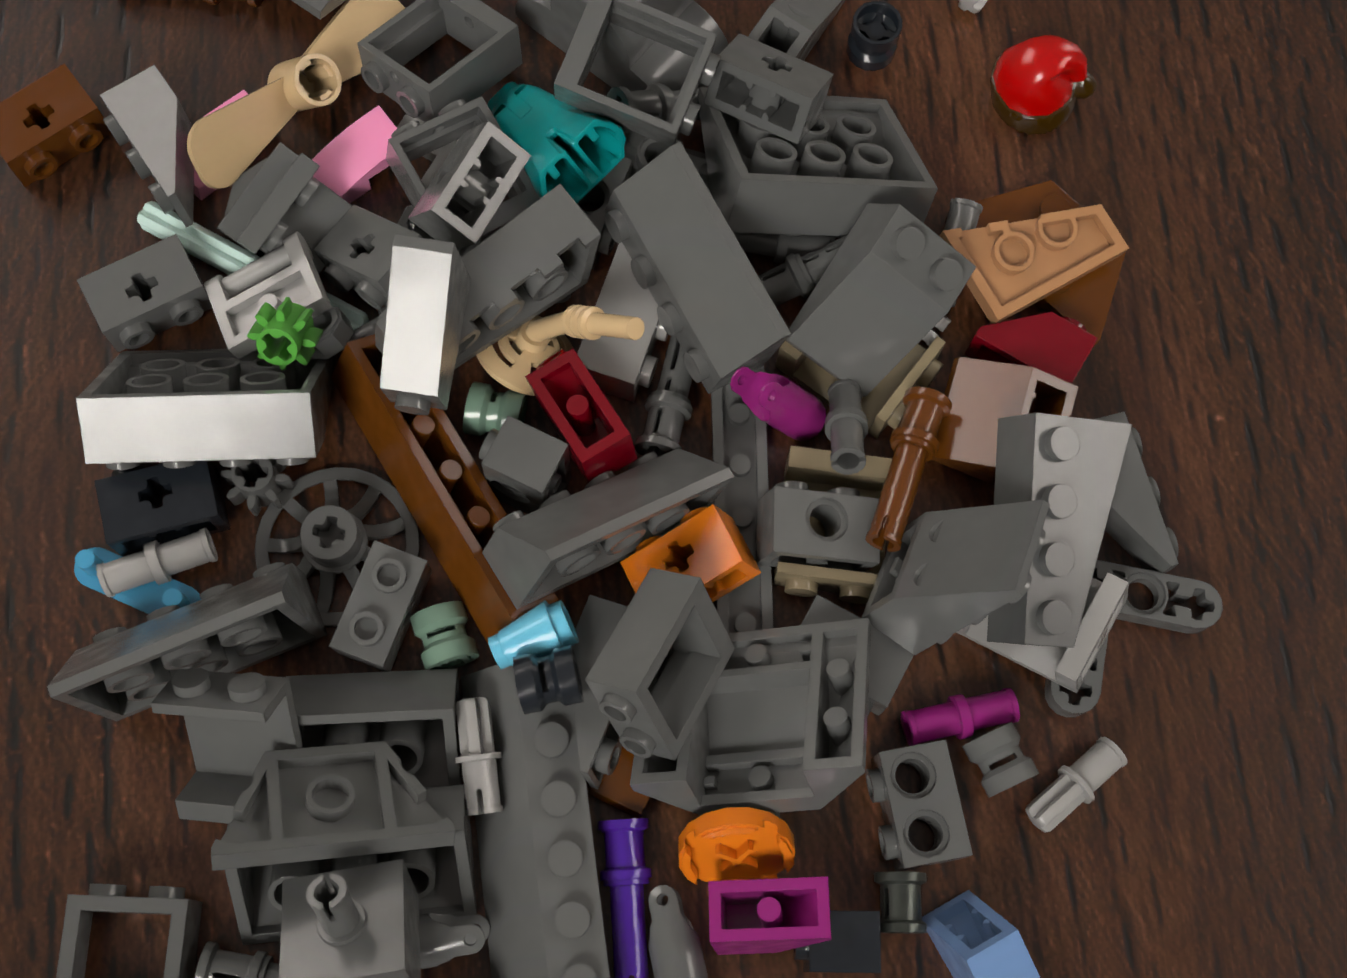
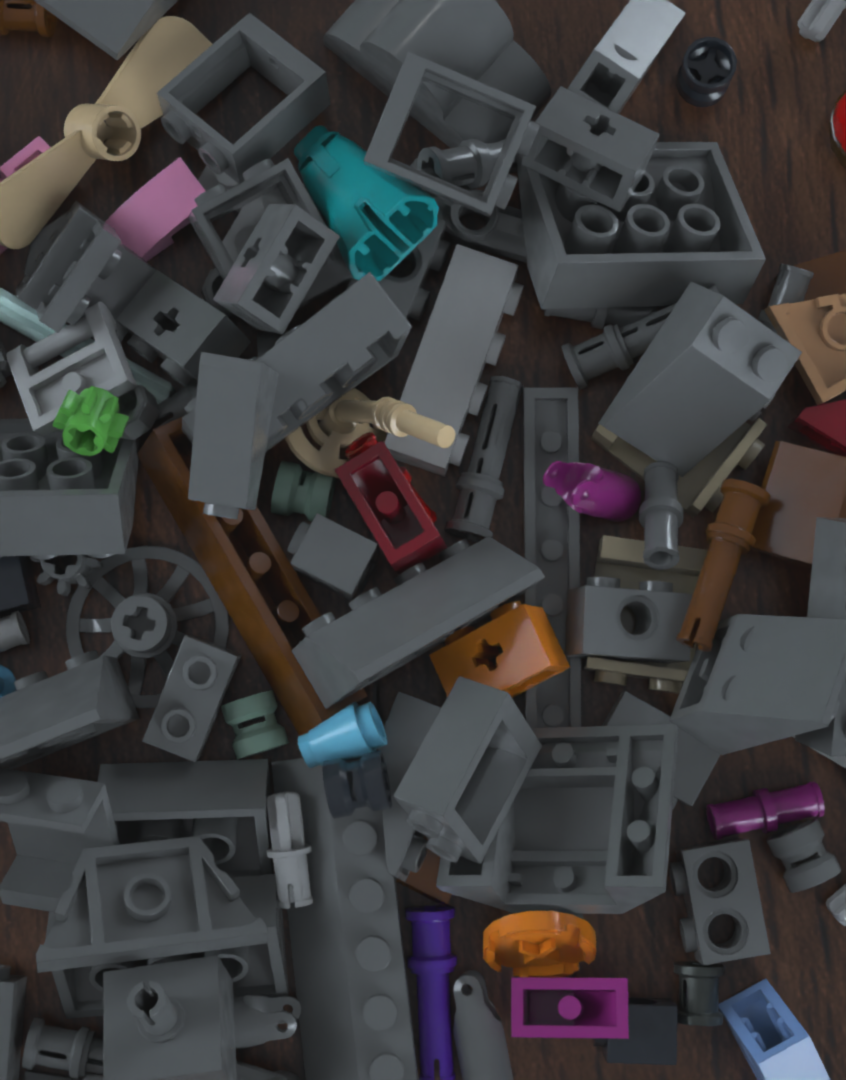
camera: 10 degrees right, 10 degrees up
(694, 270) = (507, 355): dark grey slope -> none

